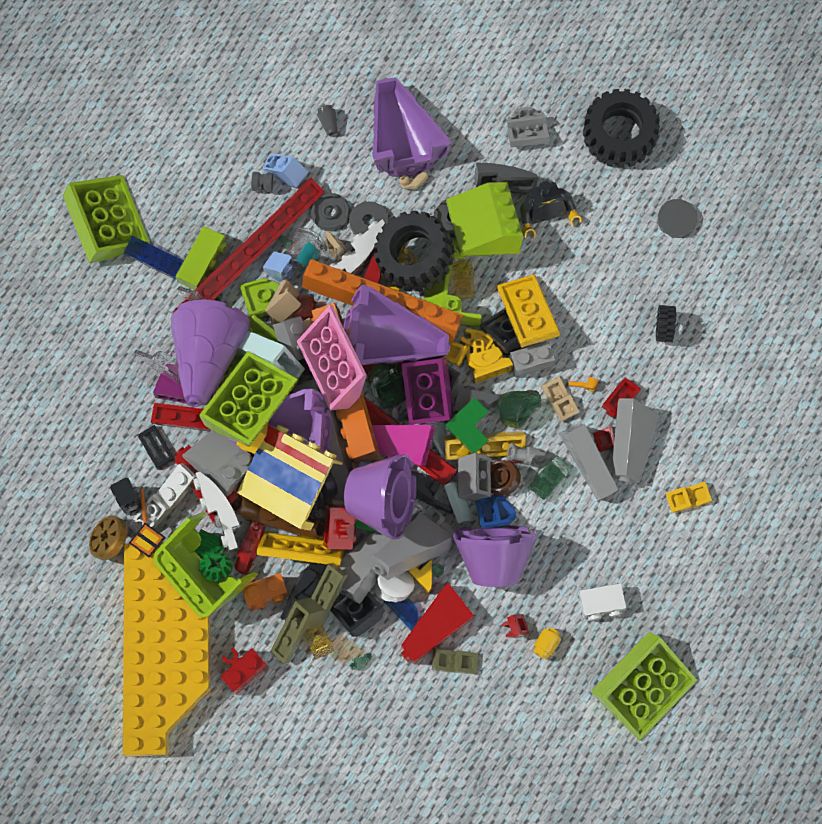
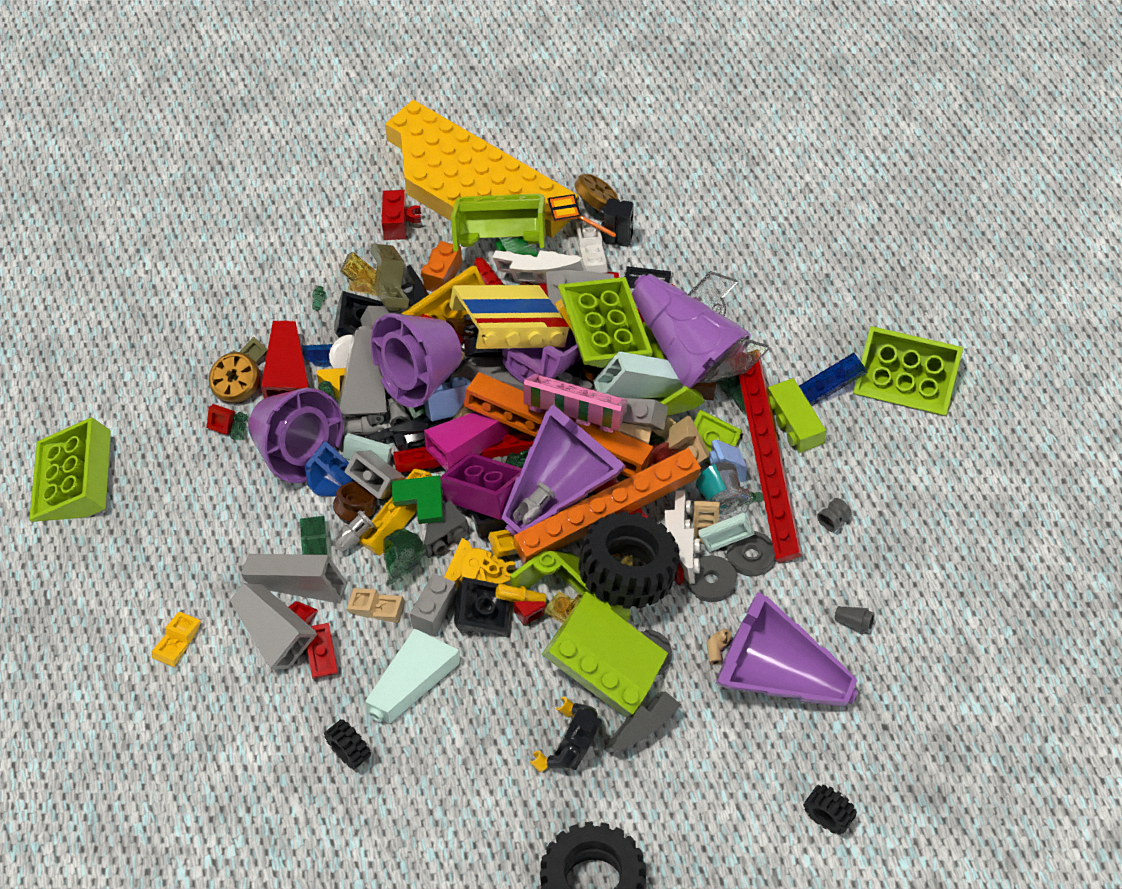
camera: 130 degrees right, 20 degrees down
(215, 573) = (487, 244): green gear -> none
(285, 169) = (829, 541): light blue slope -> none
(333, 228) = (726, 532): none -> light aqua tile
(418, 341) = (532, 506): none -> light grey piece
(466, 648) = (234, 364): none -> pearl gold wheel
(471, 40) = (830, 809): none -> black tyre
(485, 301) = (529, 610): none -> red slope
(486, 316) = (517, 594): none -> yellow axle
(511, 609) = (239, 427): none -> clear green piece
(527, 128) = (680, 793): light grey slope -> none
(528, 310) = (482, 632): yellow tile -> none
(547, 643) = (183, 429): yellow brick -> none
(590, 332) = (410, 675): none -> light aqua slope
(591, 384) = (361, 639): light orange hand -> none
(602, 601) = (168, 494): white brick -> none
(677, 218) = (446, 861): dark grey tile -> none

